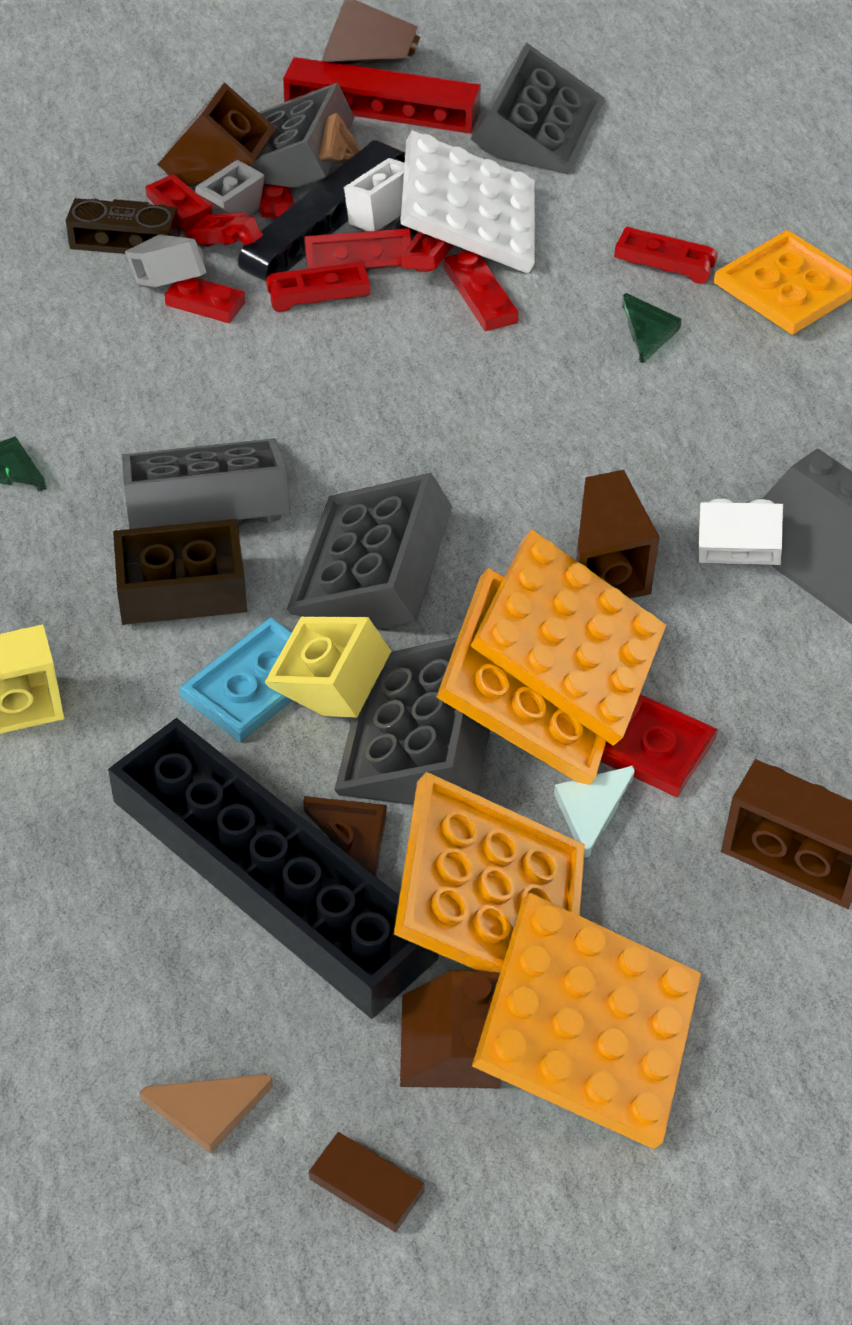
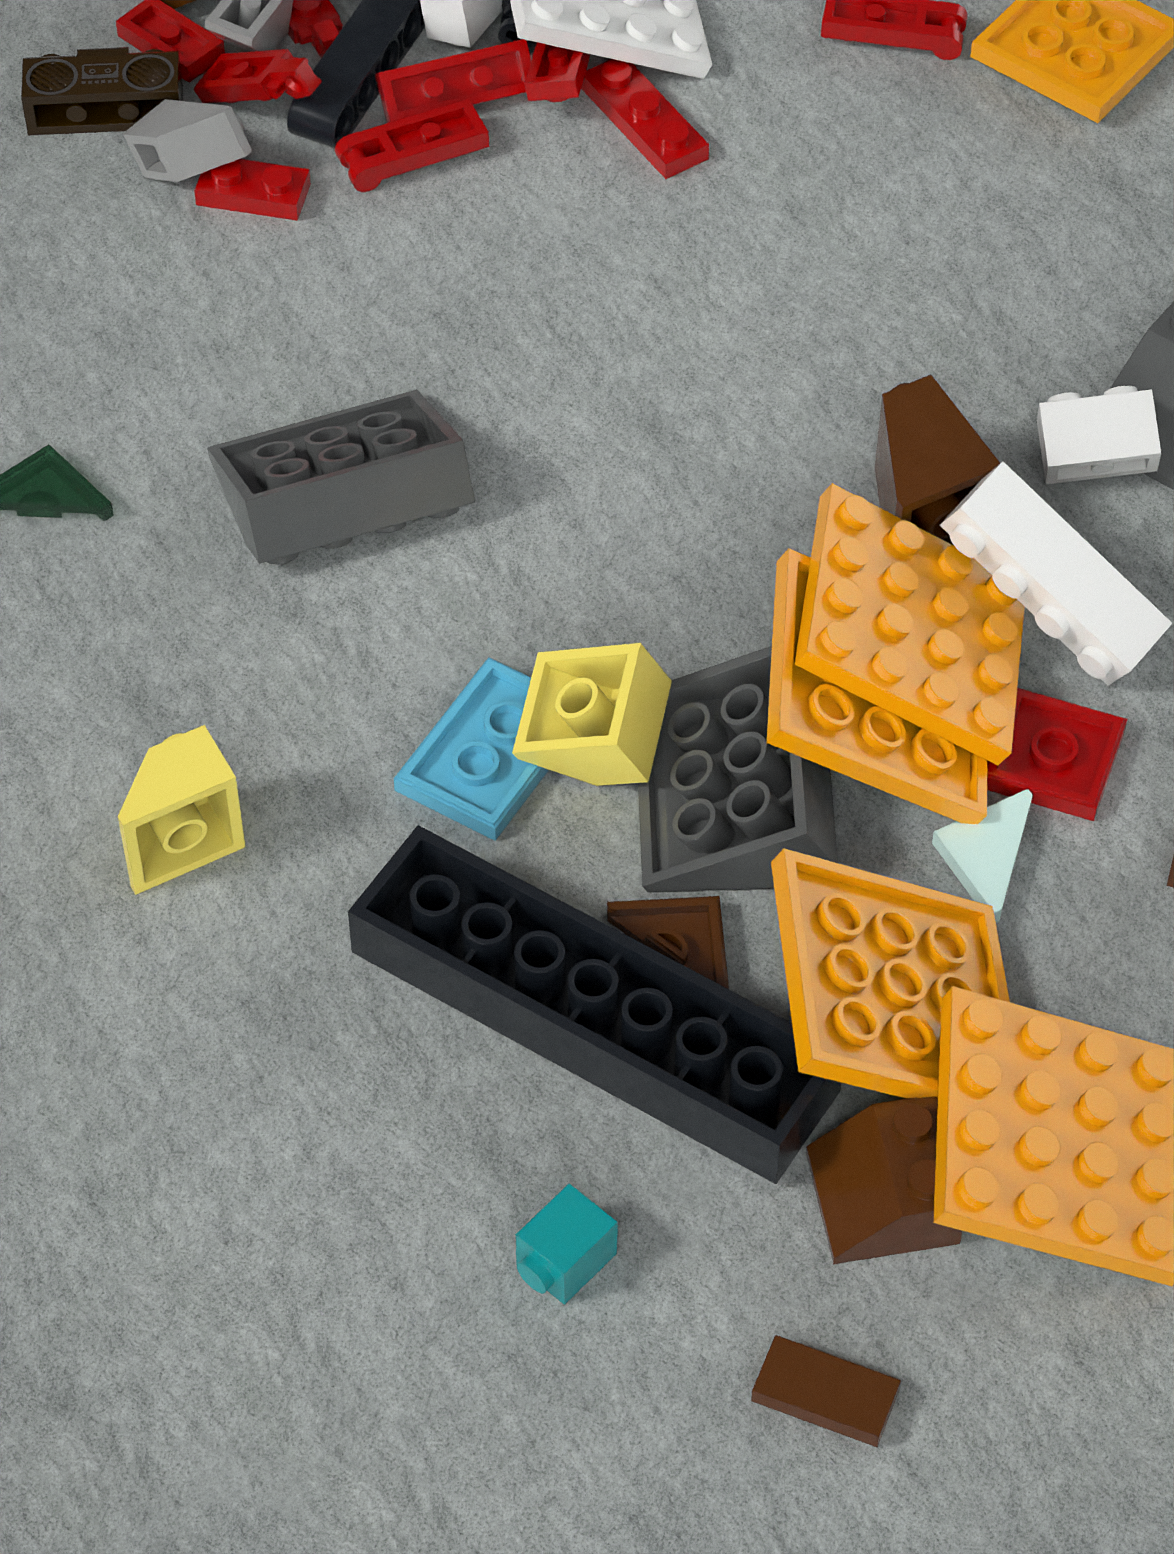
camera: 10 degrees left, 5 degrees up
(179, 571) = (351, 612): dark brown brick -> none
(200, 1036) = (565, 1244): none -> teal brick
(207, 1108) = (596, 1335): medium nougat tile -> none
(374, 553) = (604, 542): dark grey slope -> none
(649, 325) = (894, 137): clear green tile -> none
(682, 617) = (1055, 575): none -> white brick

